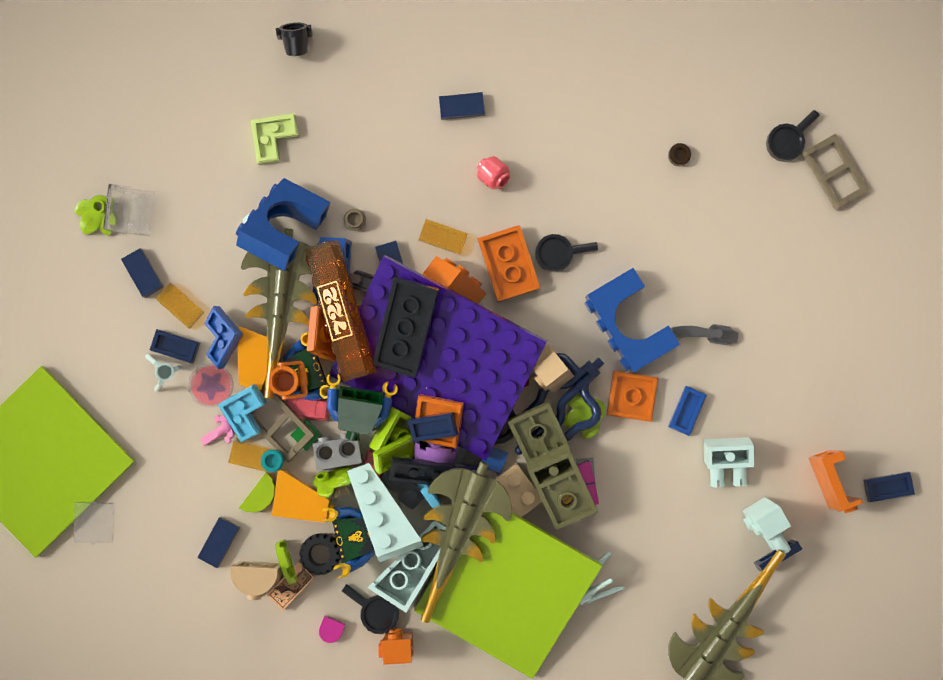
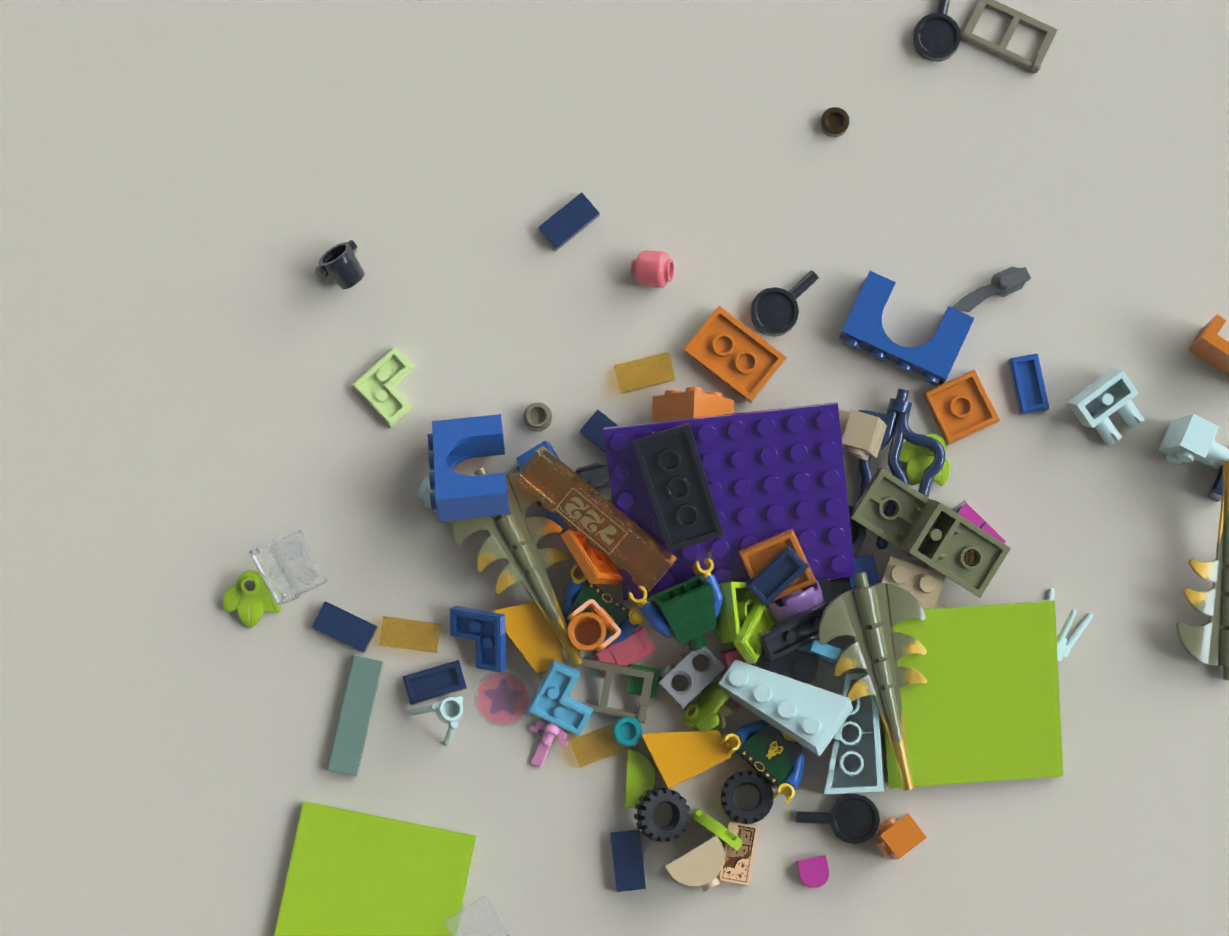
camera: 35 degrees left, 5 degrees down
(110, 334) = (355, 716): none -> sand green tile
(262, 541) = (679, 814): none -> black tyre

